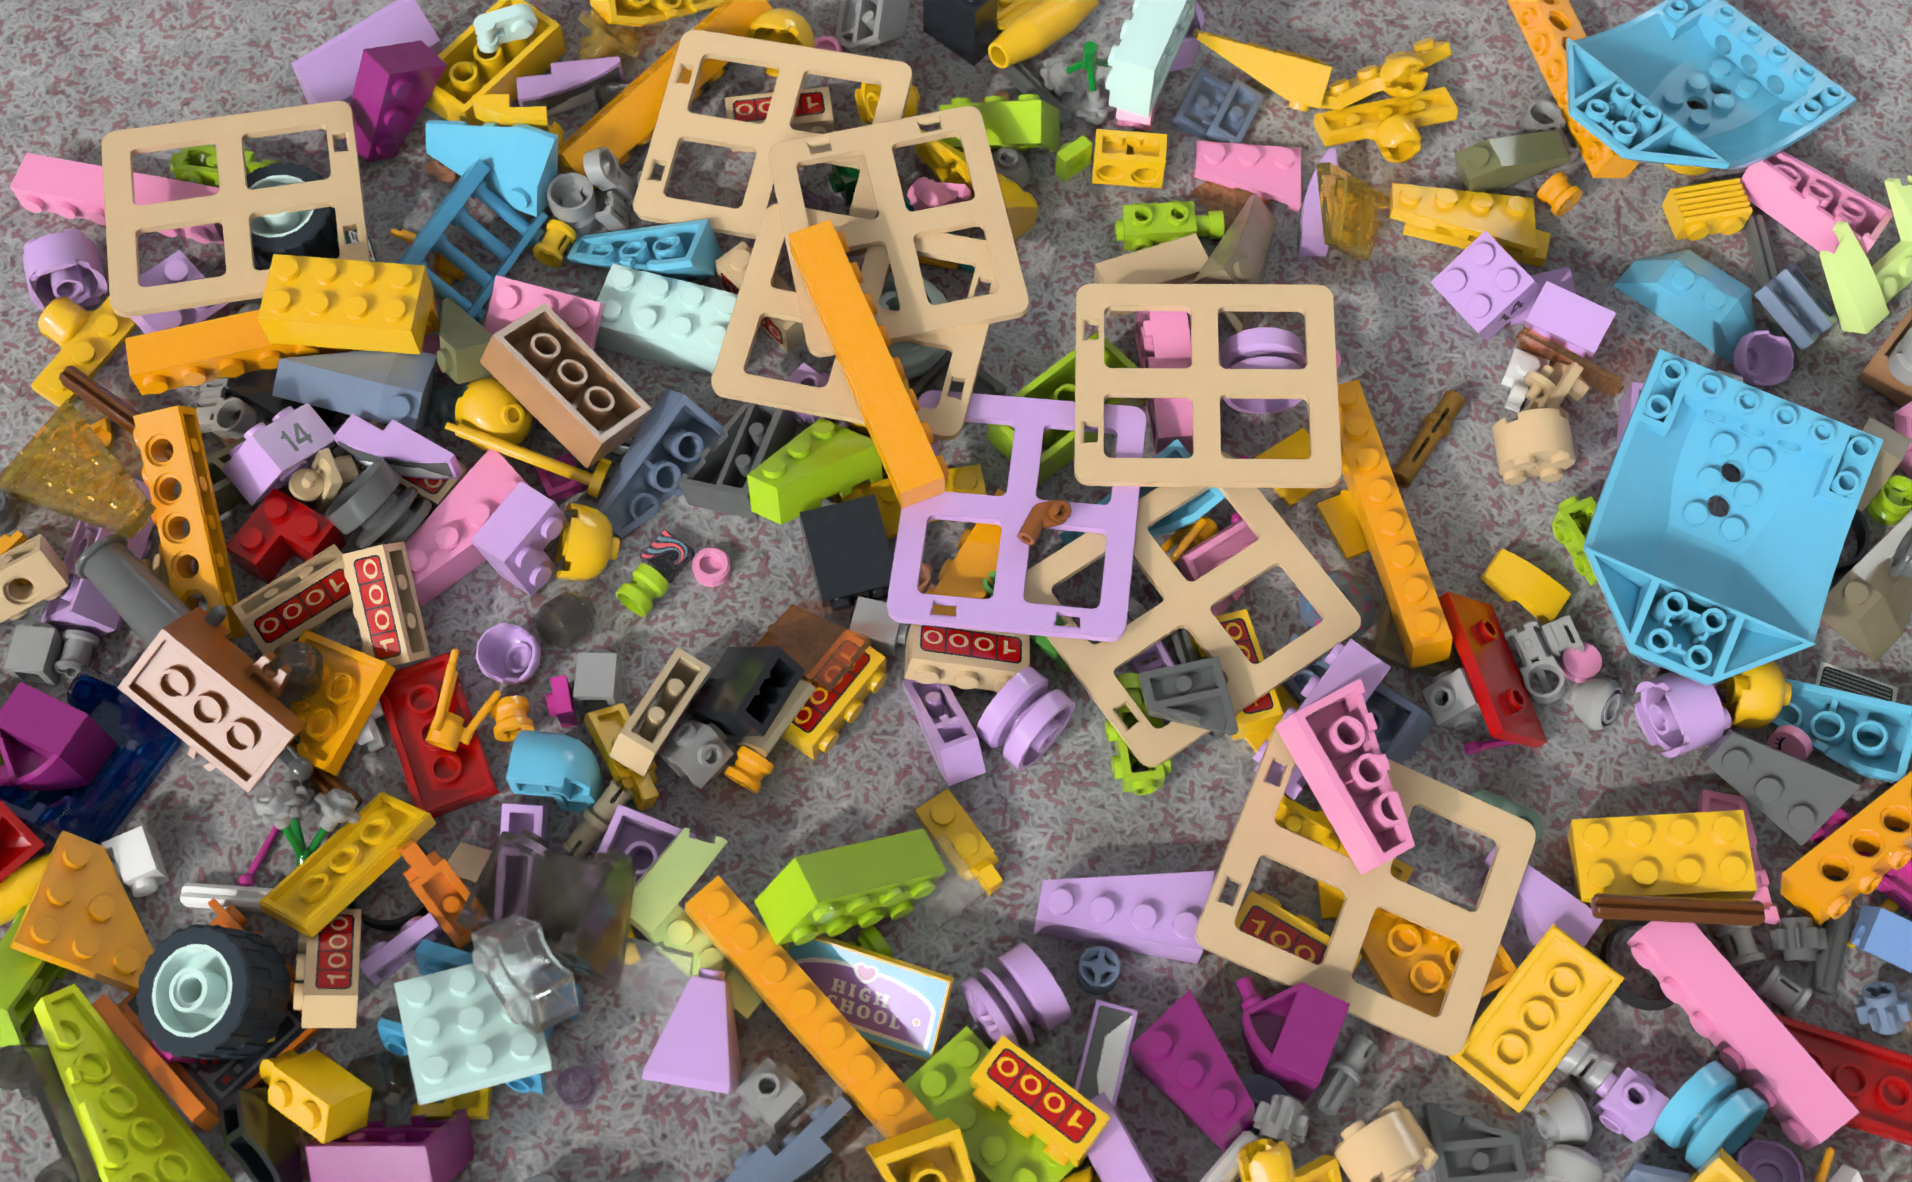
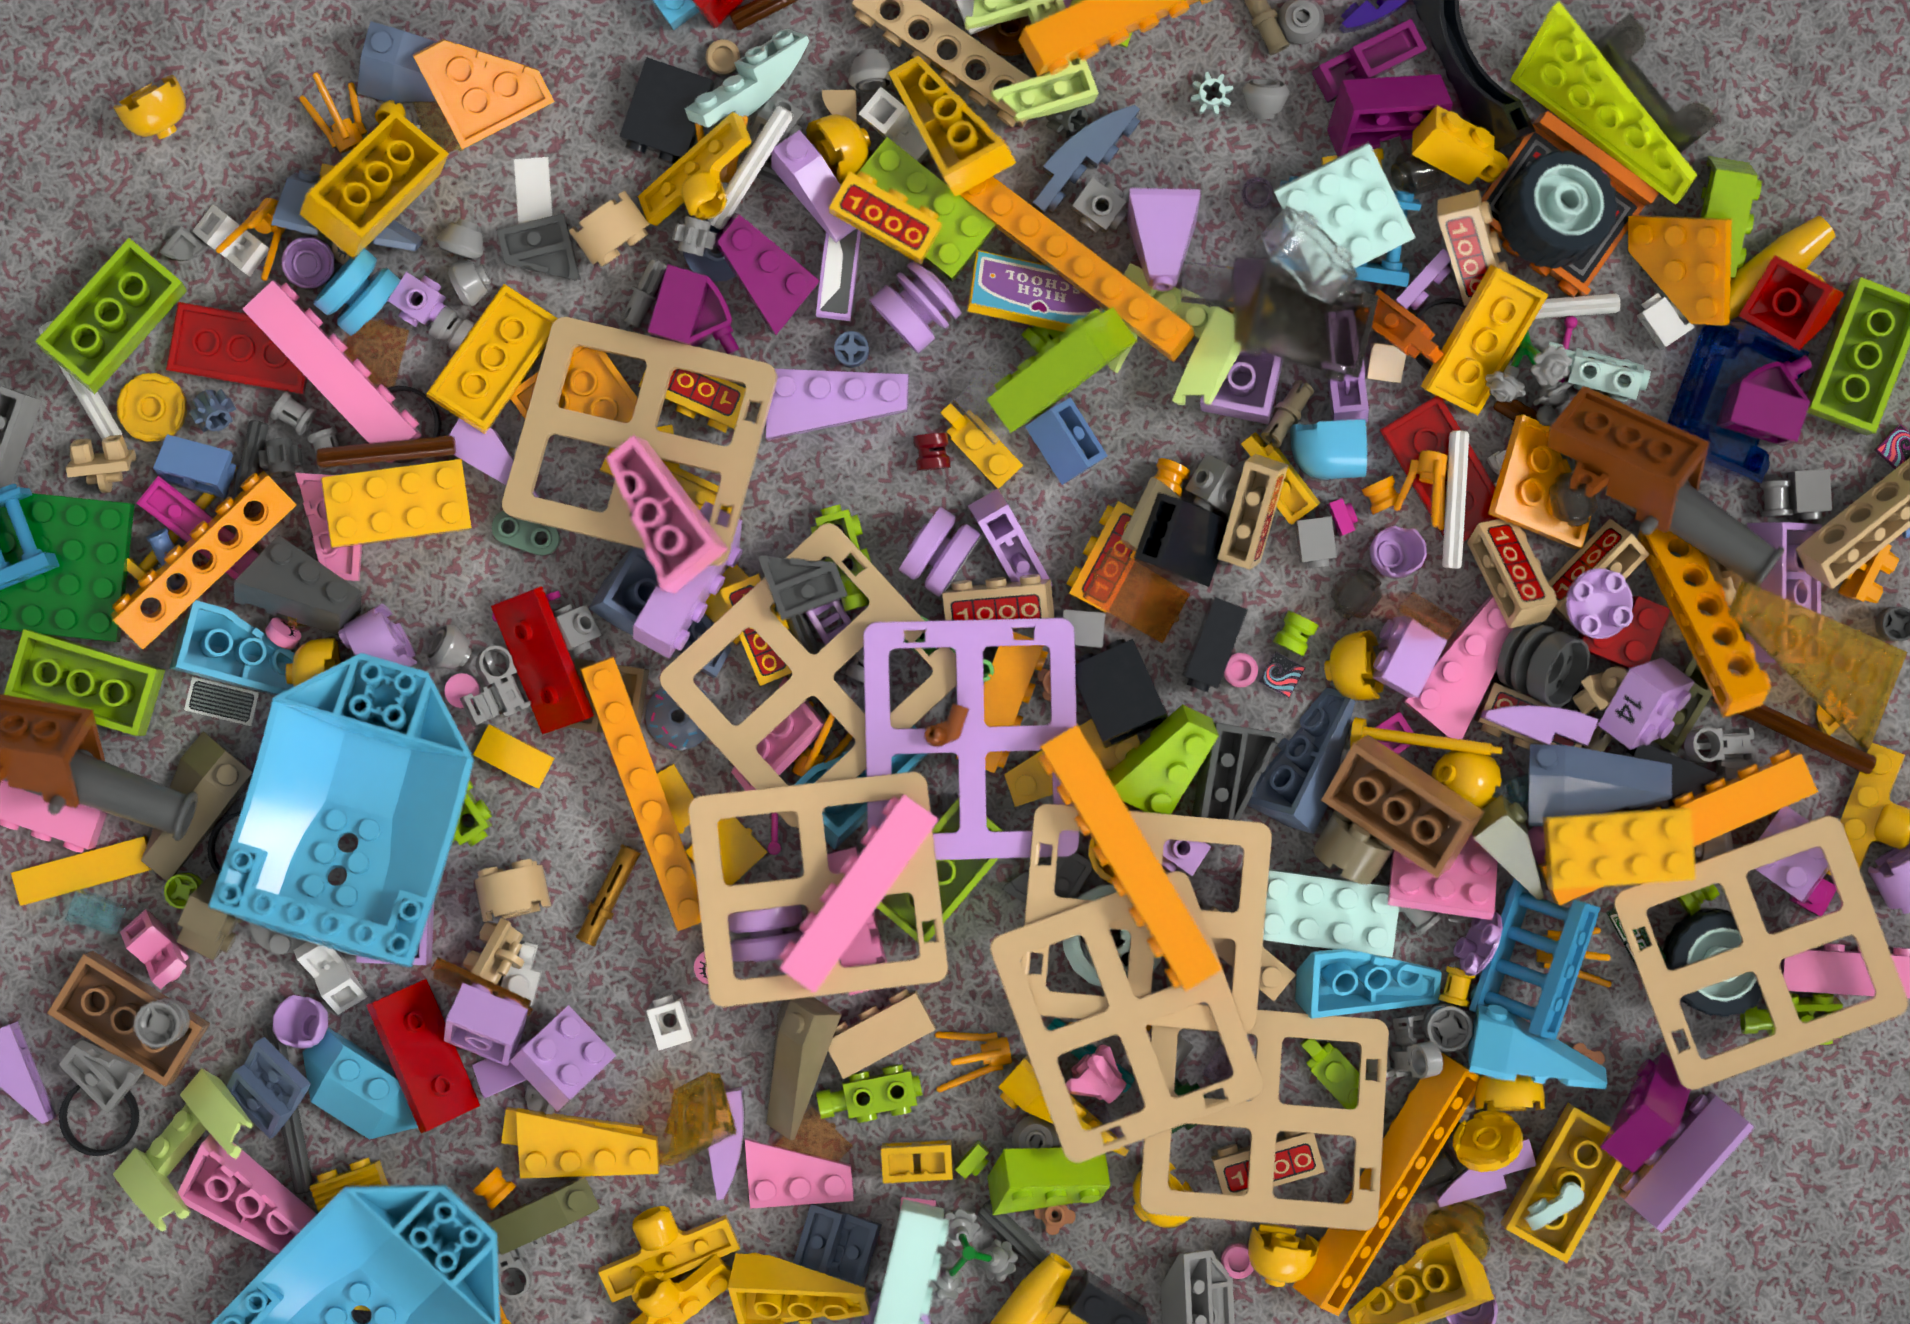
camera: 175 degrees right, 25 degrees up
(225, 813) = (1606, 374): none -> light aqua brick
(298, 555) = (1599, 603): none -> lavender dish
(426, 703) = (1455, 499): none -> white axle
(488, 568) = (1429, 616): none -> clear orange piece
(498, 109) = (1531, 1091): yellow slope -> none
(522, 260) = (1479, 944): none -> lavender dish
(565, 97) = (1488, 1141): none -> yellow tile
(636, 359) = (1351, 849): none -> dark tan brick
(690, 180) = (1333, 1072): none -> lime hinge
(733, 583) = (1214, 644): none -> black brick
(855, 811) = (1064, 442): none -> medium blue brick
(1018, 838) = (932, 459): none -> dark red wheel
(1037, 245) = (994, 1052): none -> light orange plant
(1163, 364) = (858, 893): none -> bright pink brick
(1370, 311) = (666, 1035): none -> white brick
(1645, 317) = (421, 1059): none -> red plate
(1675, 1051) = (379, 349): none -> clear orange piece

